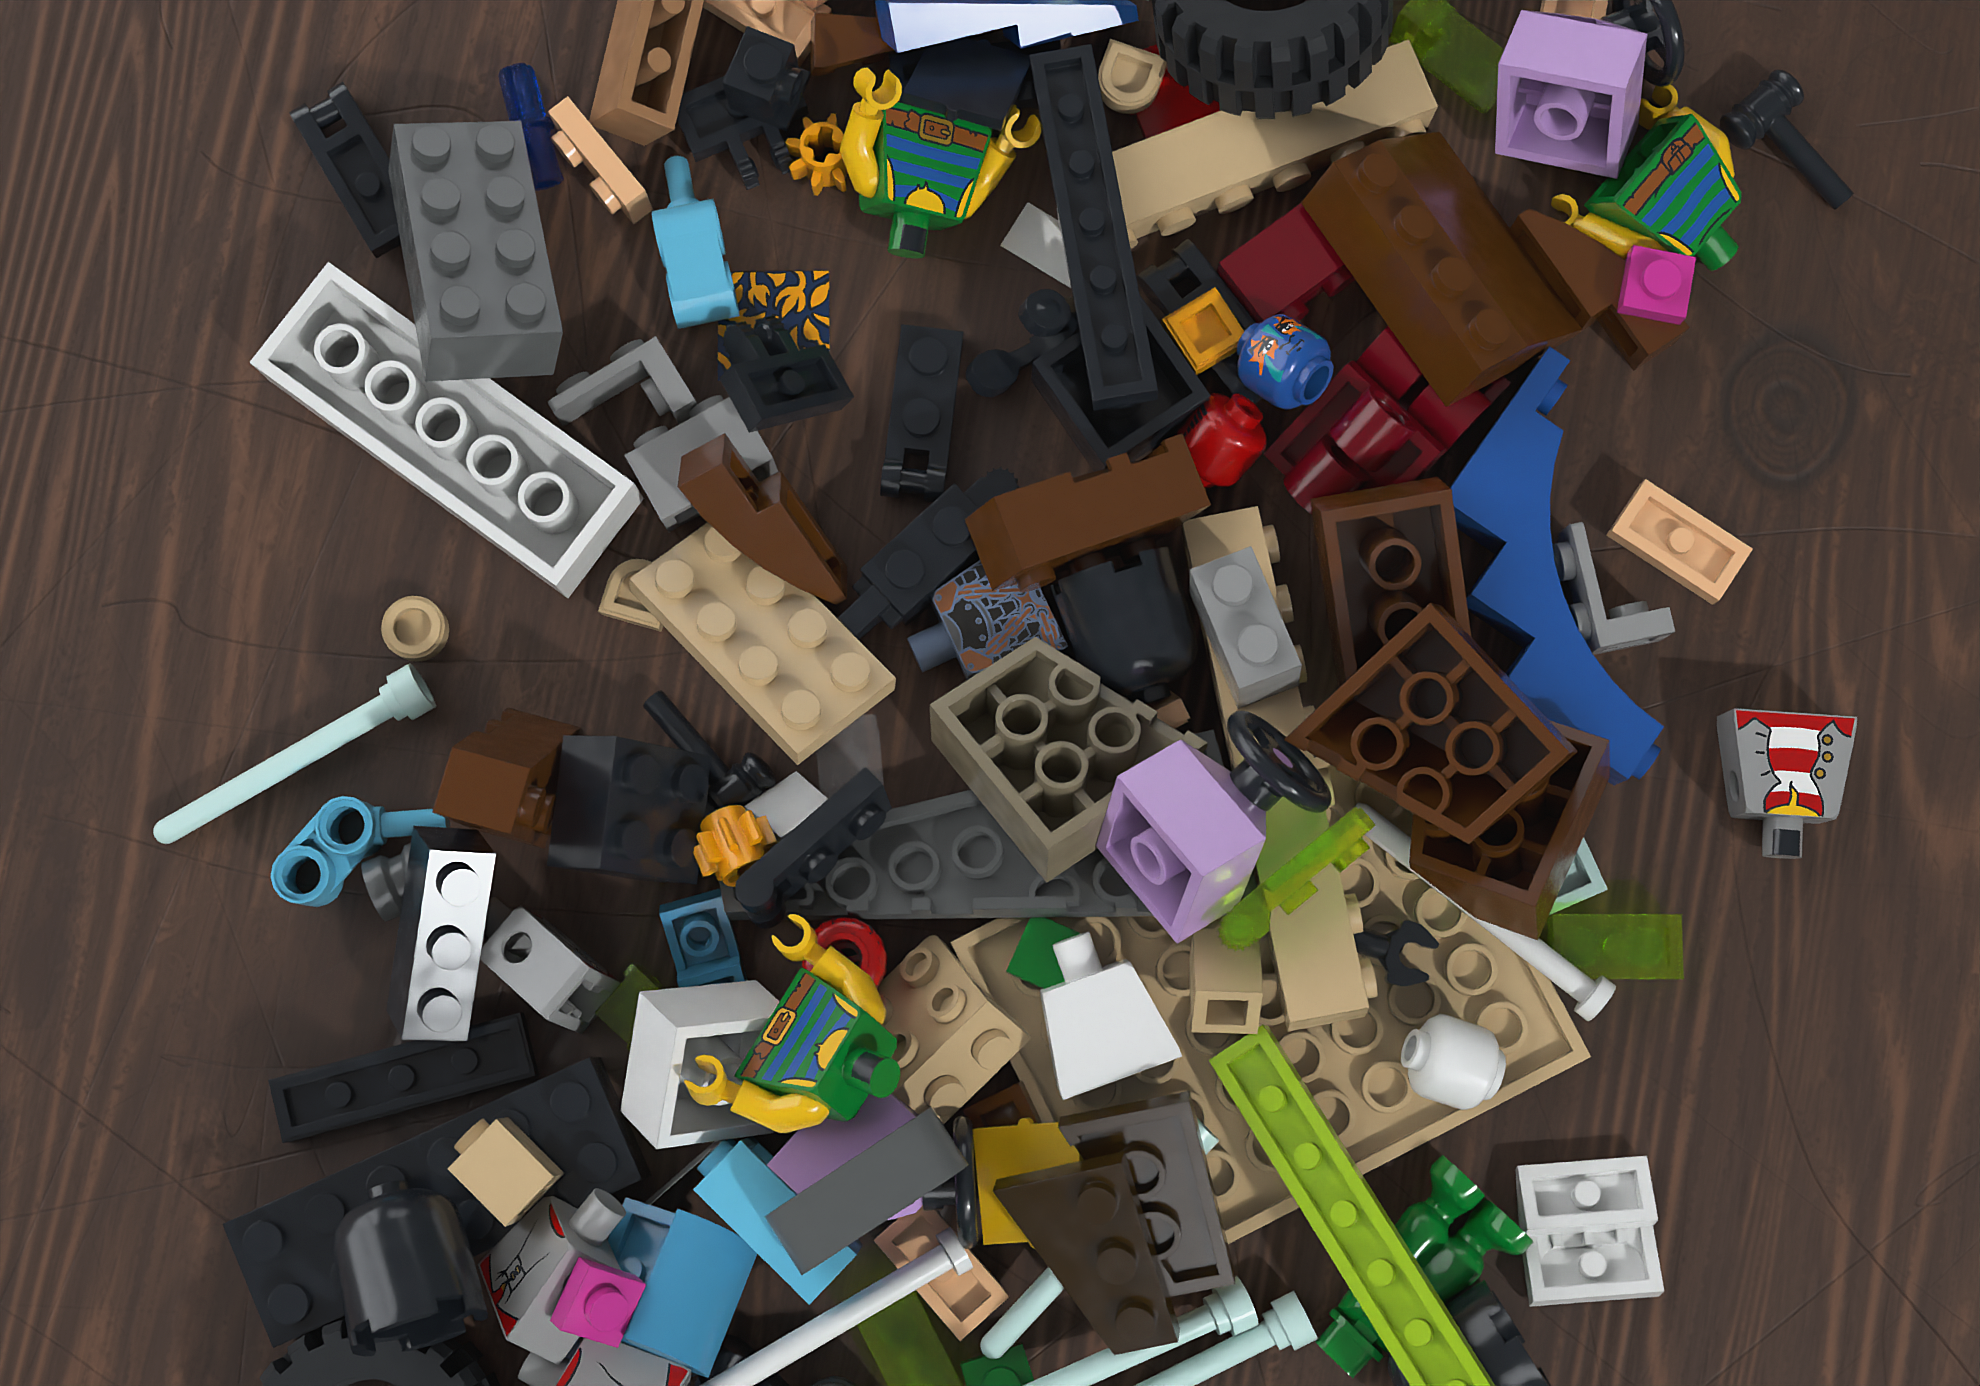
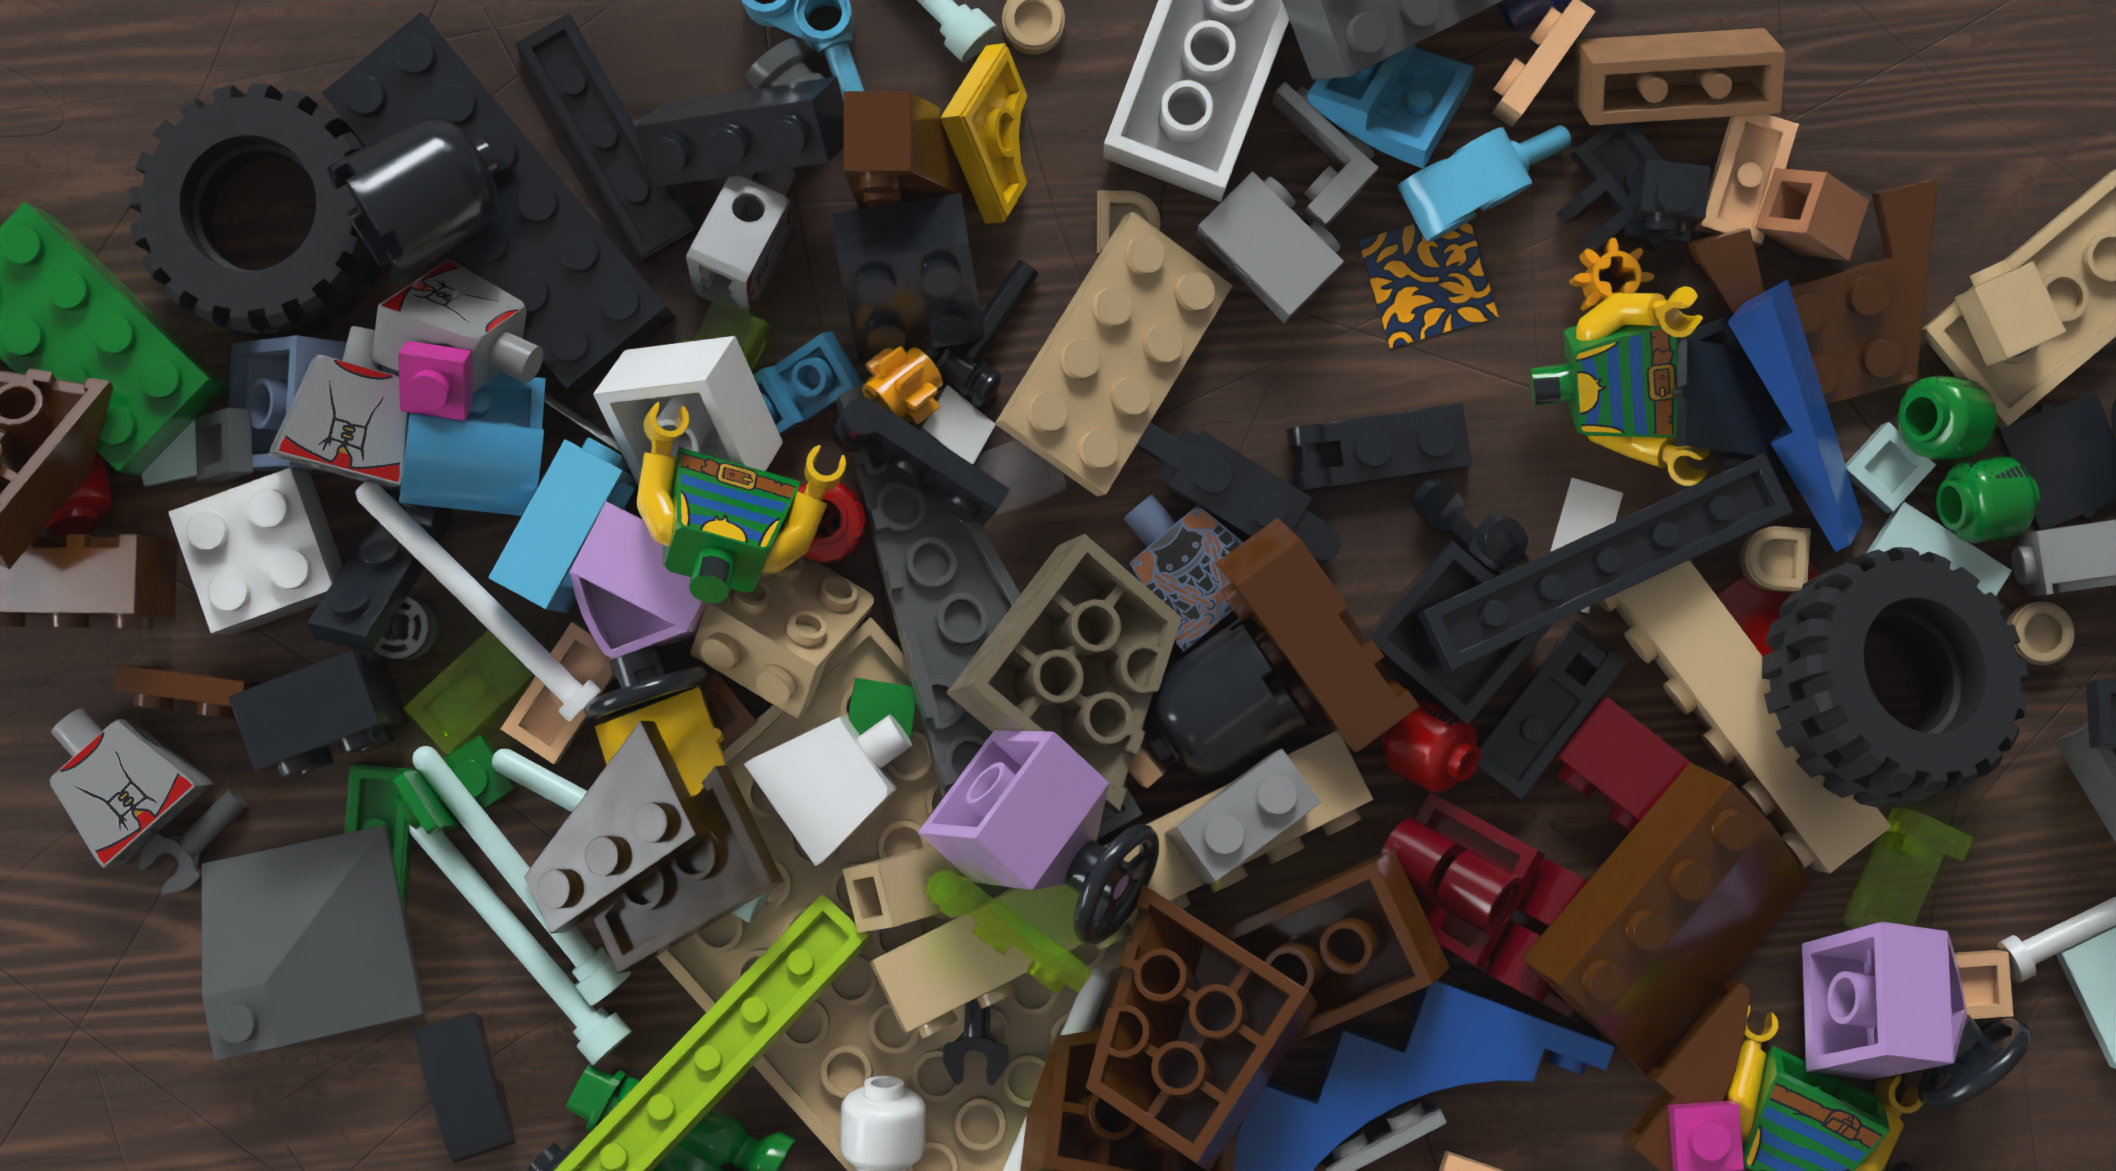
camera: 75 degrees right, 5 degrees up
(503, 1168) = (537, 256): tan brick -> none
(509, 699) = (985, 132): none -> yellow tile
(600, 304) = (1397, 103): none -> dark azure slope
(762, 519) = (1224, 322): reddish brown slope -> none
(775, 380) = (1369, 297): black hinge -> none
(866, 1191) = (604, 601): dark grey beam -> none
(1204, 330) = (1535, 701): light orange tile -> none
(1284, 362) = (1523, 787): blue head -> none

